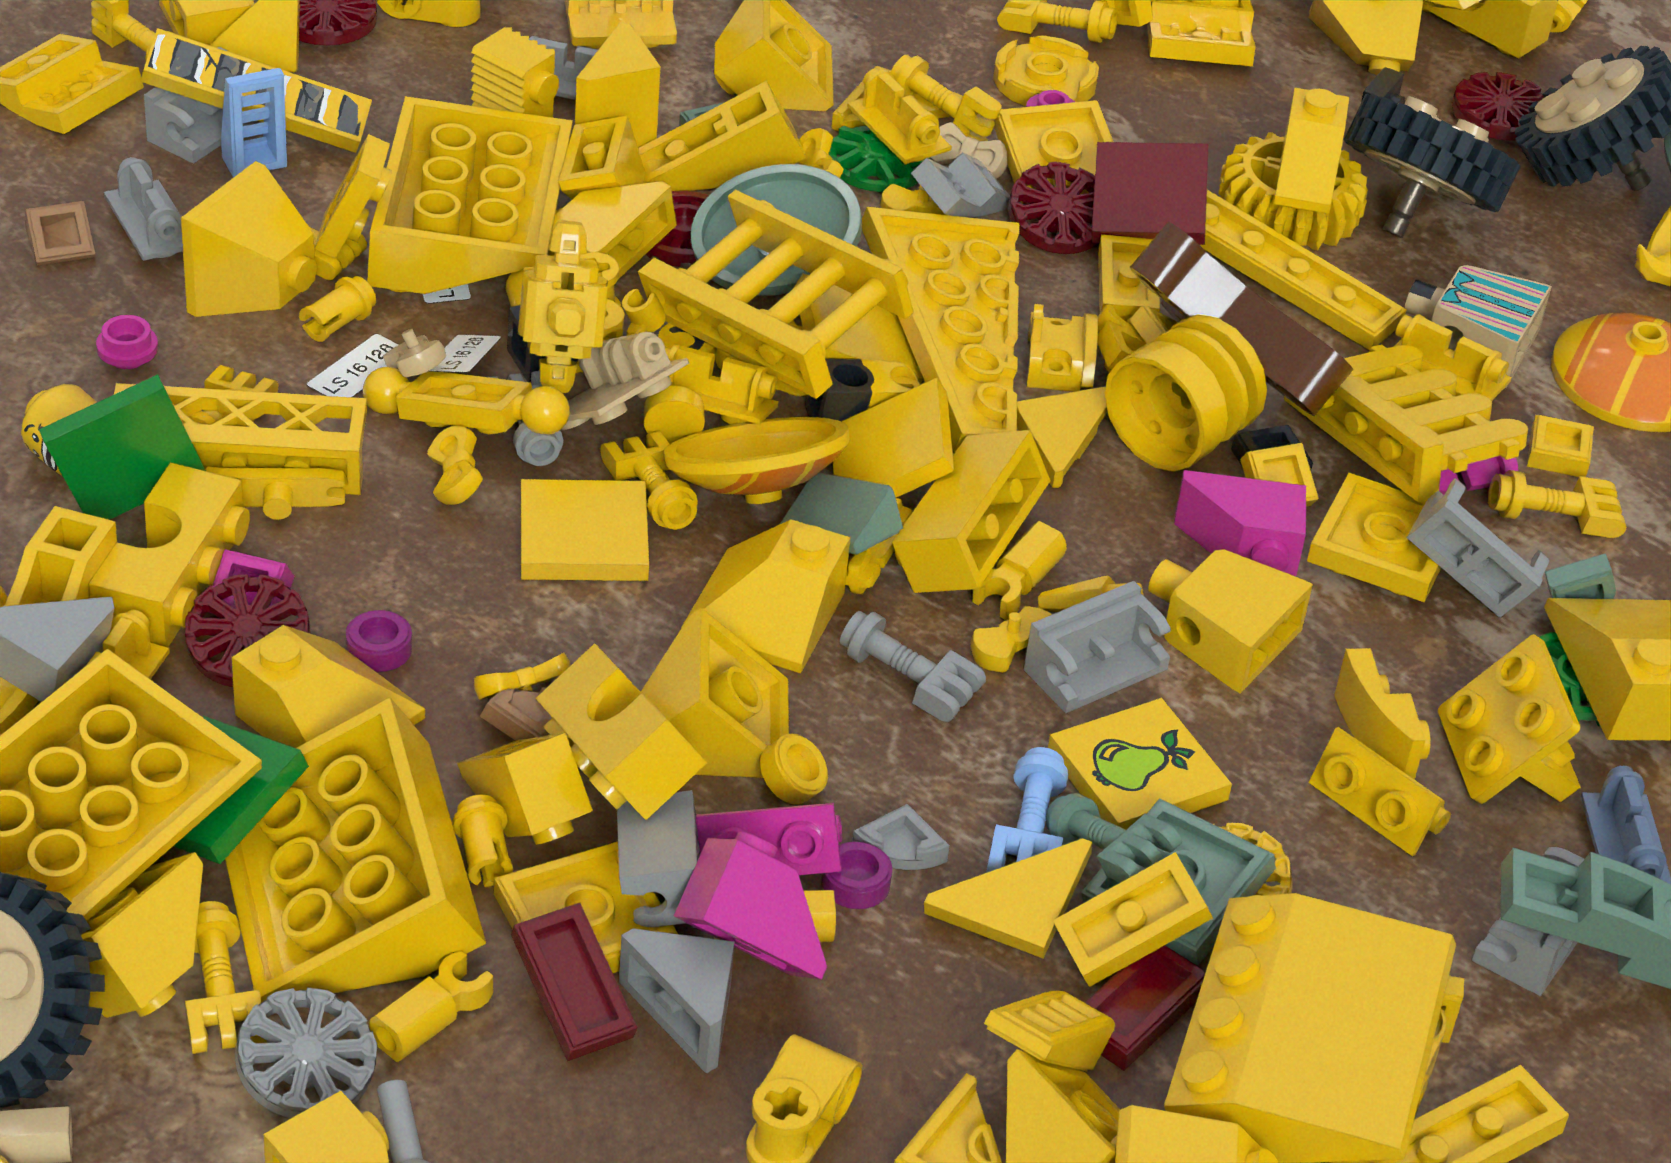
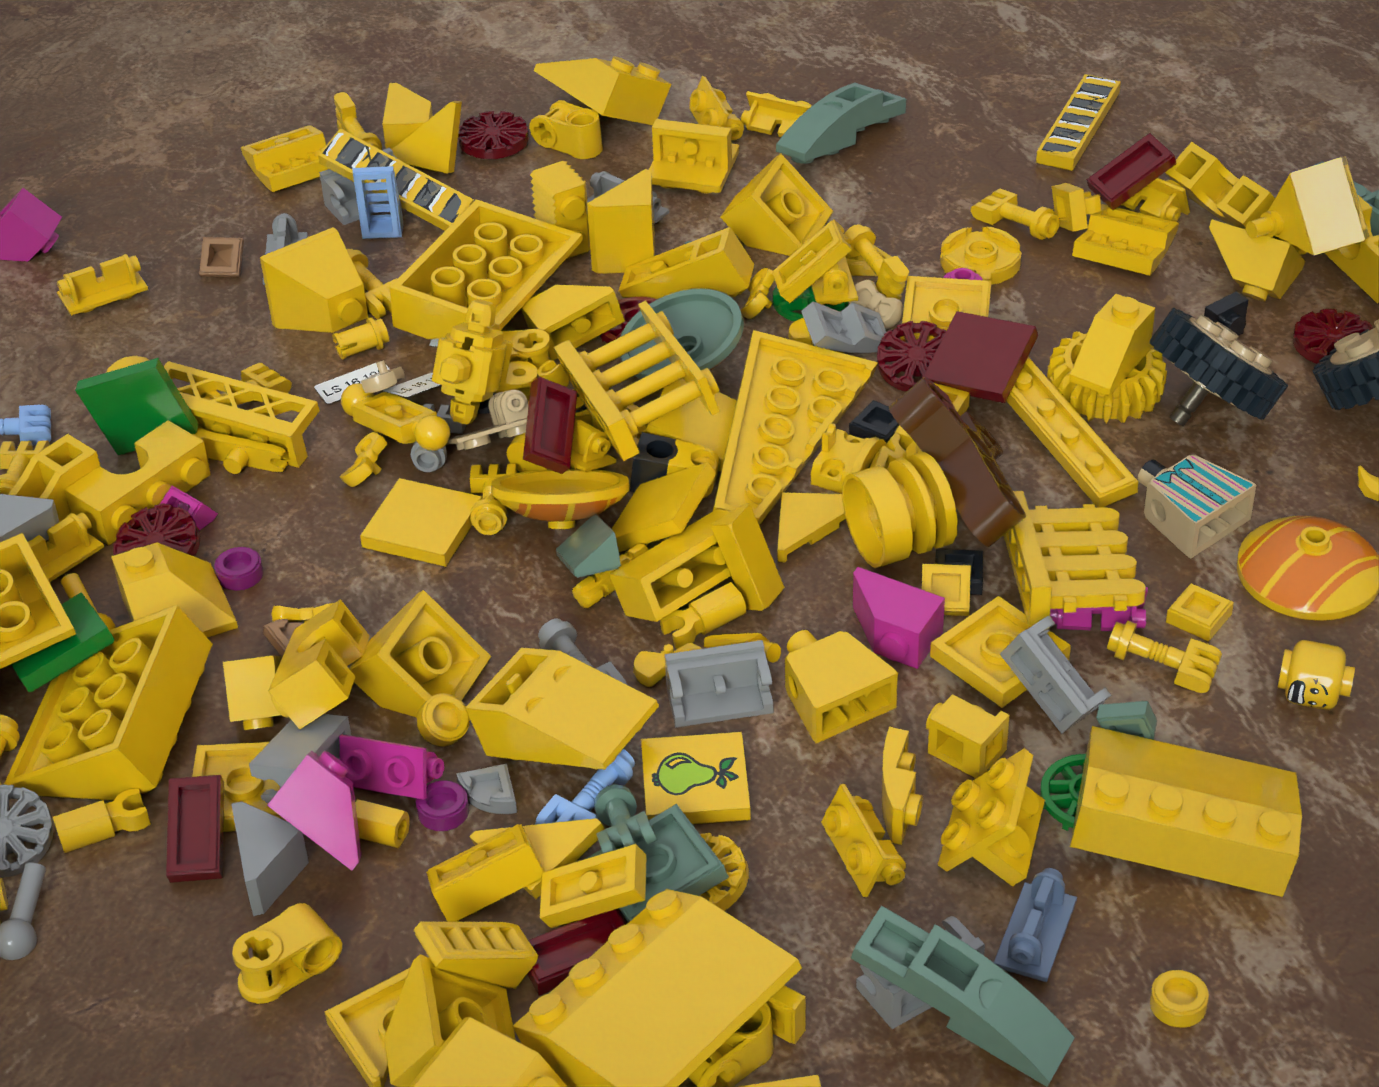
camera: 30 degrees right, 0 degrees up
(126, 342) = (213, 336): dark pink plate -> none
(346, 212) = (395, 259): yellow plate -> none
(481, 827) = (208, 716): yellow pin -> none
(601, 157) = (589, 263): yellow slope -> none
(706, 370) = (550, 425): none -> dark red tile
(779, 590) = (516, 597): yellow slope -> none
(891, 112) = (811, 261): none -> yellow tile
(953, 722) = (557, 711): none -> yellow slope
(977, 940) = (484, 873): none -> yellow slope
(1045, 485) = (748, 557): none -> yellow slope
(1066, 295) = (874, 422): none -> black tile
(1416, 641) = (966, 735): none -> yellow brick
(1476, 366) = (1147, 532): yellow hinge -> none

